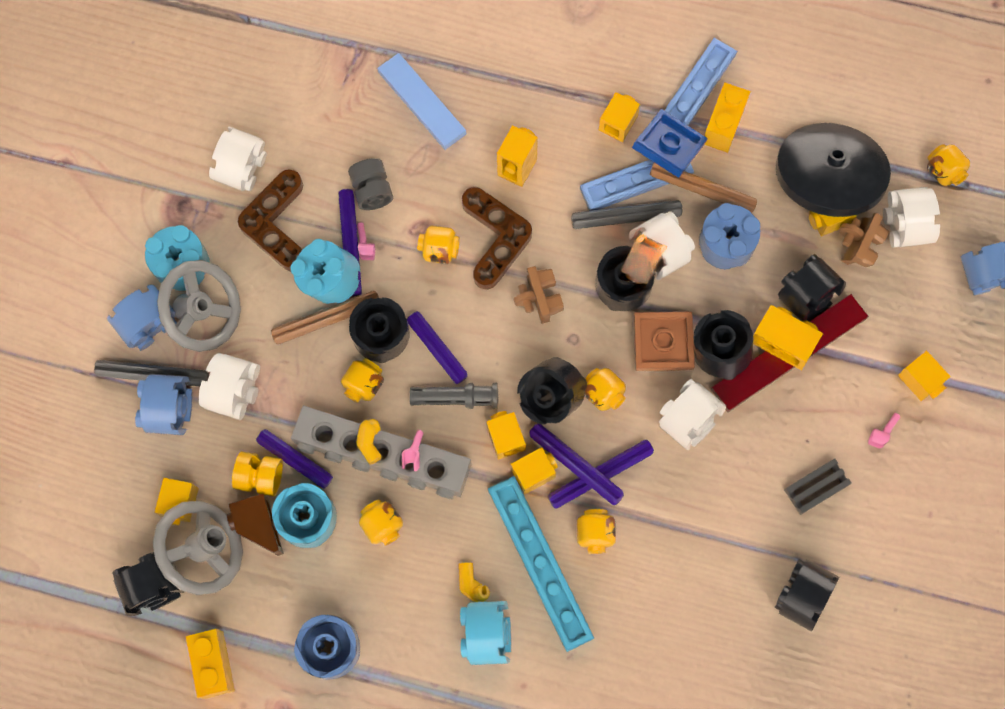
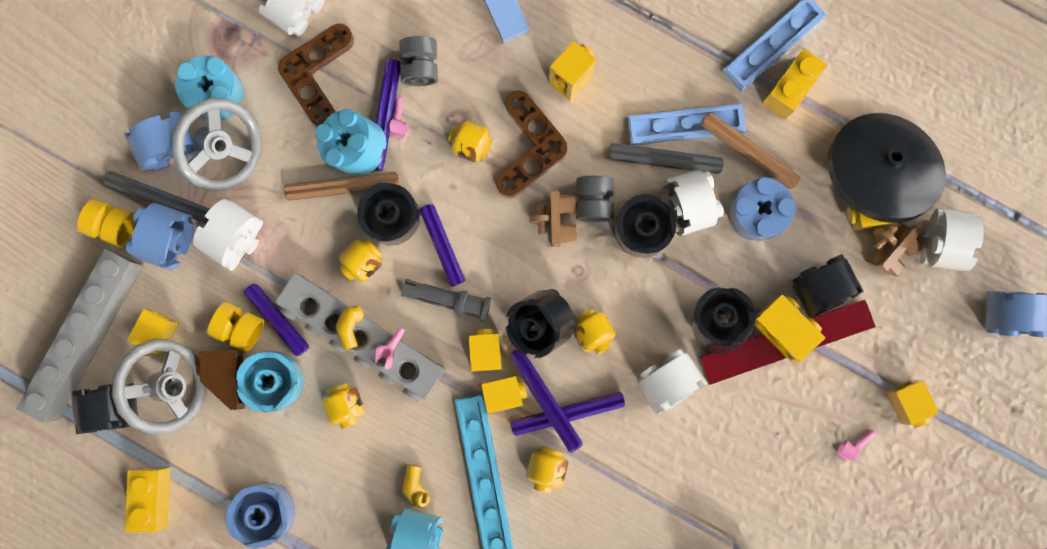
camera: 15 degrees right, 10 degrees up
(105, 522) = (79, 337): none -> light grey brick
(111, 408) = (103, 221): none -> yellow wheel
(571, 268) = (594, 200): none -> dark grey wheel
(619, 116) = (687, 54): yellow brick -> none
(643, 259) = (667, 217): clear orange brick -> none
(663, 341) = (666, 298): nougat plate -> none
(669, 143) = (729, 97): blue tile -> none
(838, 473) = (798, 475): dark grey tile -> none
(948, 165) = (1004, 192): yellow head -> none

